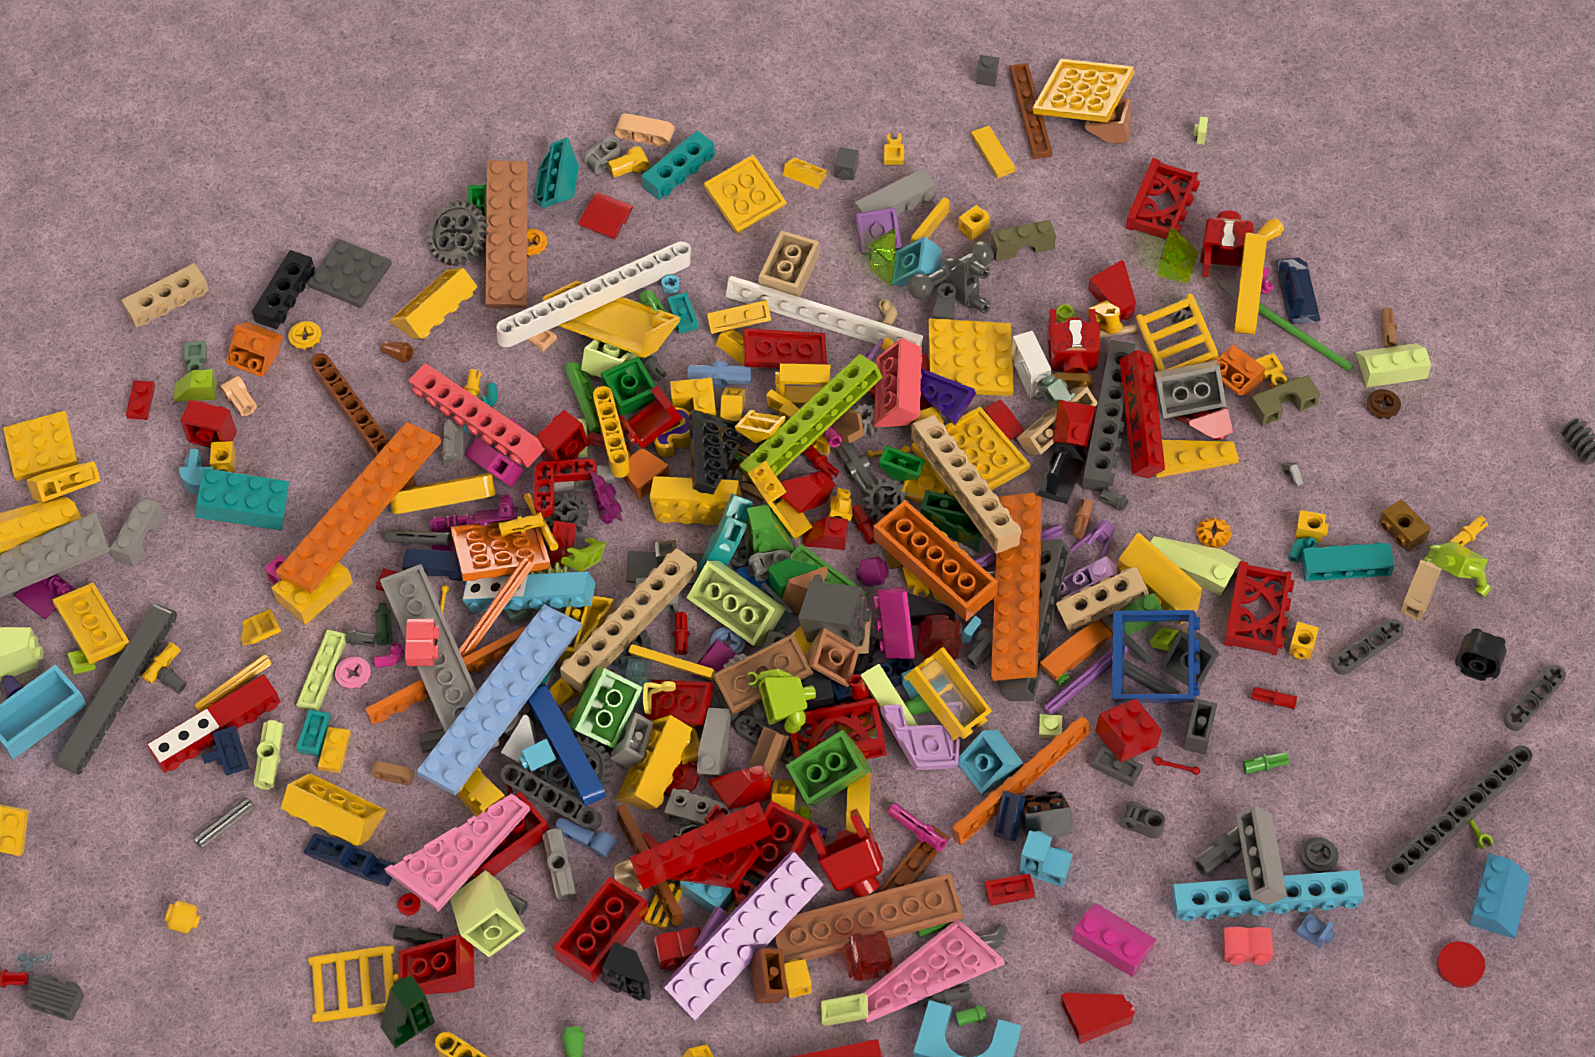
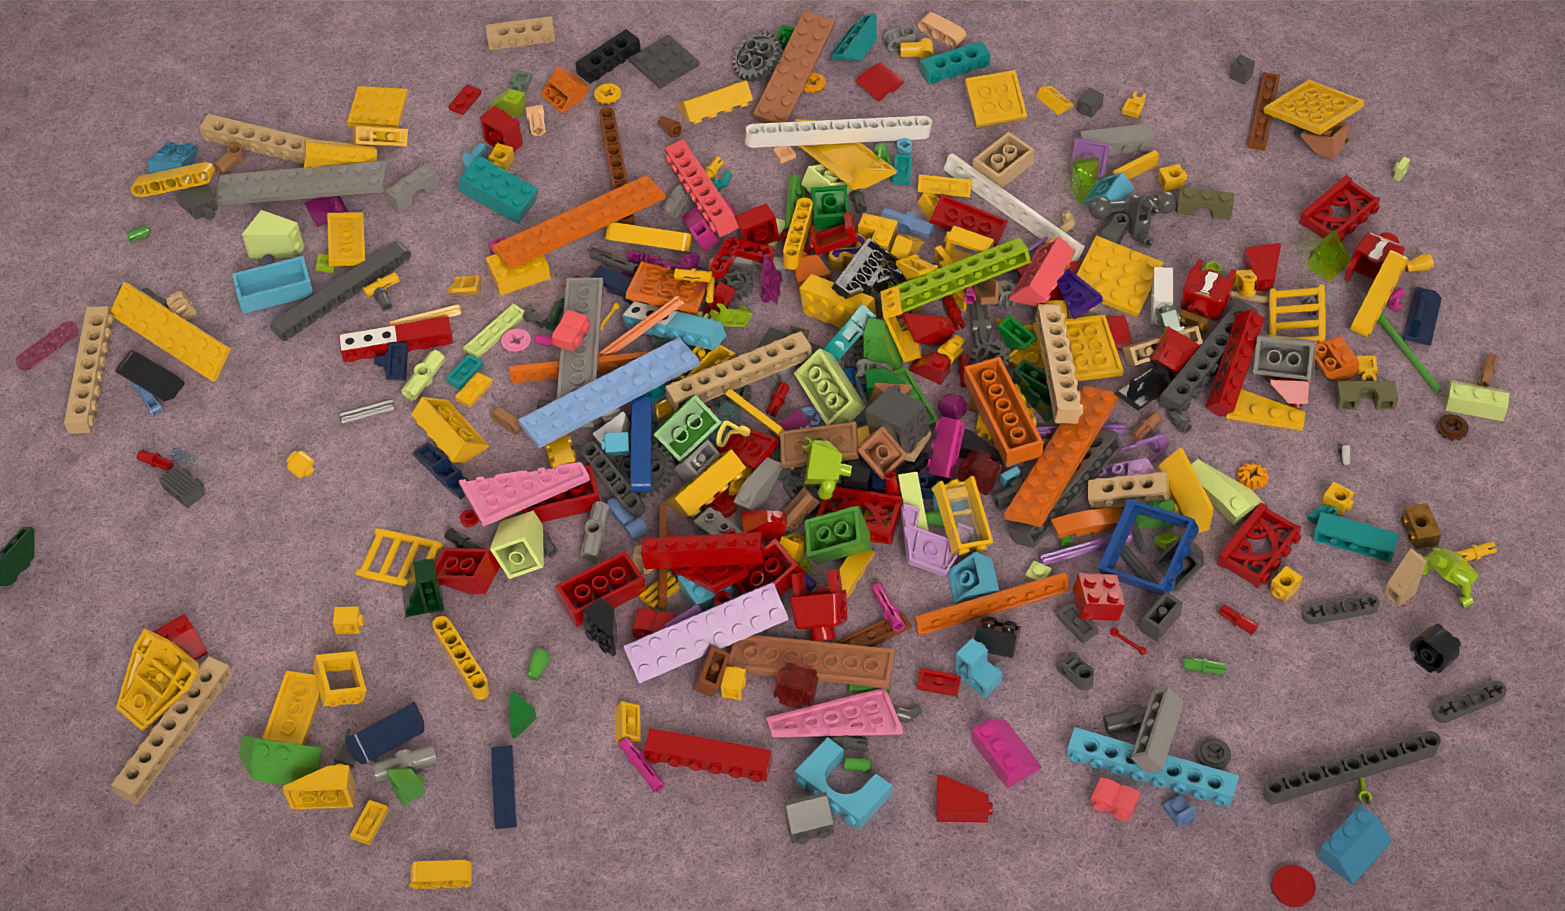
camera: 25 degrees right, 5 degrees down
(844, 1009) = (758, 719): yellowish green tile -> none
(993, 151) = (1216, 132): yellow tile -> none
(1009, 815) = (966, 625): dark blue tile -> none

